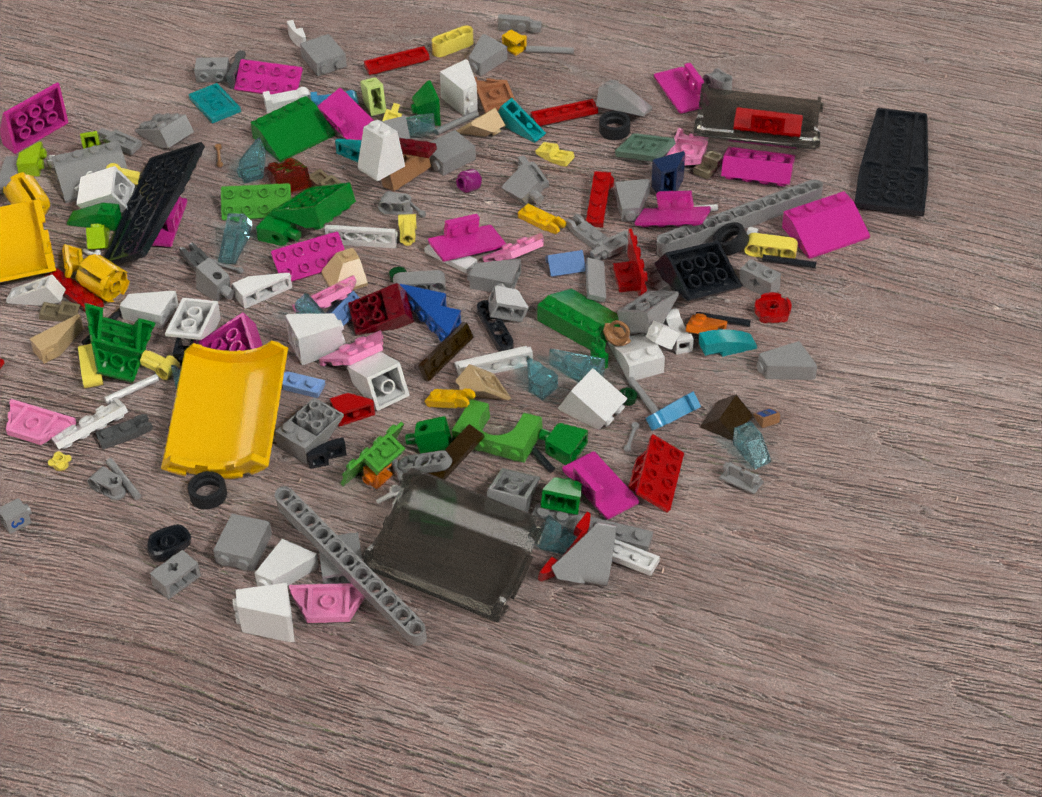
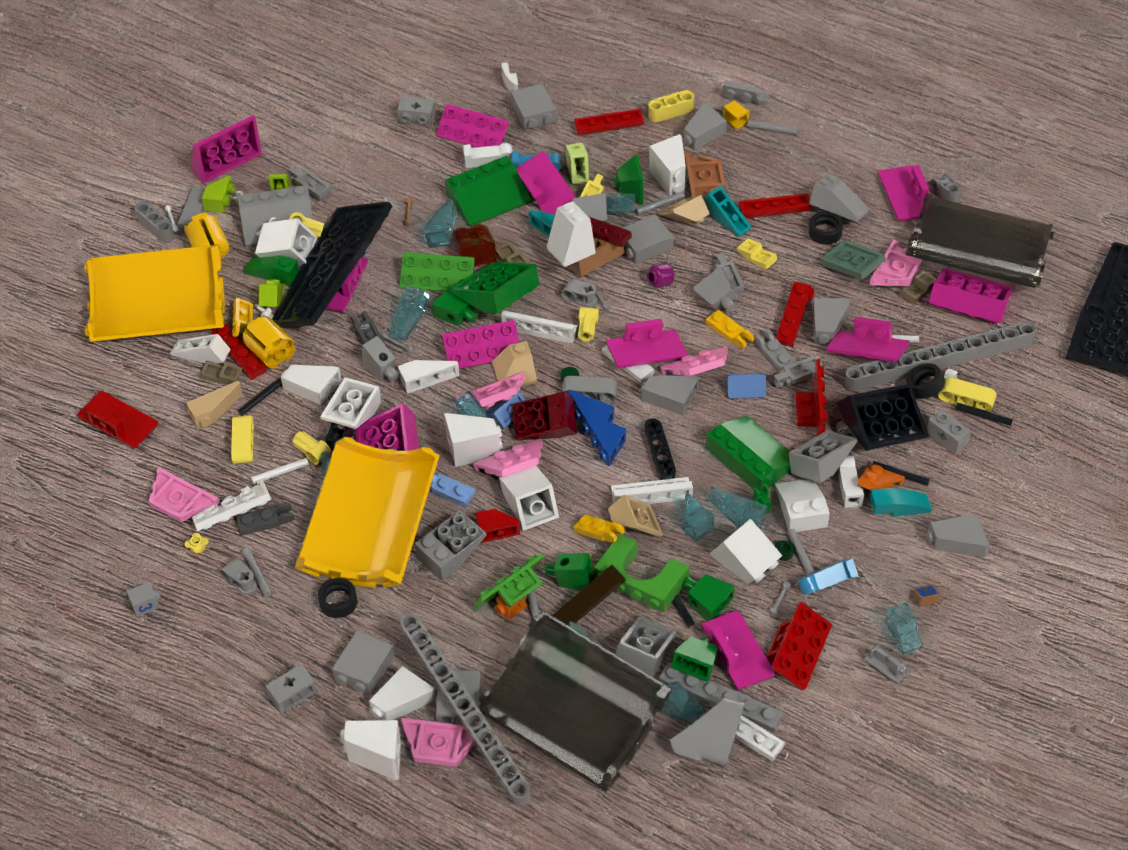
camera: 10 degrees right, 5 degrees up
(117, 344) = (271, 420): green wedge -> none
(165, 129) = (358, 175): light grey slope -> none
(168, 542) = (289, 652): black piece -> none
(214, 103) = (413, 149): teal tile -> none
(232, 74) = (434, 120): dark grey hinge -> none
(332, 449) = (456, 575): black slope -> none
(392, 493) = (523, 628): white hand -> none
(437, 462) = (574, 600): light grey beam -> none
(445, 351) = (603, 473): dark brown tile -> none
(507, 304) = (675, 426): light grey torso -> none
(580, 530) = (707, 702): red slope -> none
(595, 280) = (774, 409): light grey tile -> none
(616, 335) = (784, 479): medium nougat piece -> none
(662, 334) = (831, 486): white brick -> none
(668, 172) = (872, 295): dark blue slope -> none
(726, 416) = (884, 590): dark brown slope -> none
(768, 122) = (991, 245): red bracket -> none
(768, 315) = (952, 476): red plate -> none
(825, 225) = (1030, 376): dark pink slope -> none

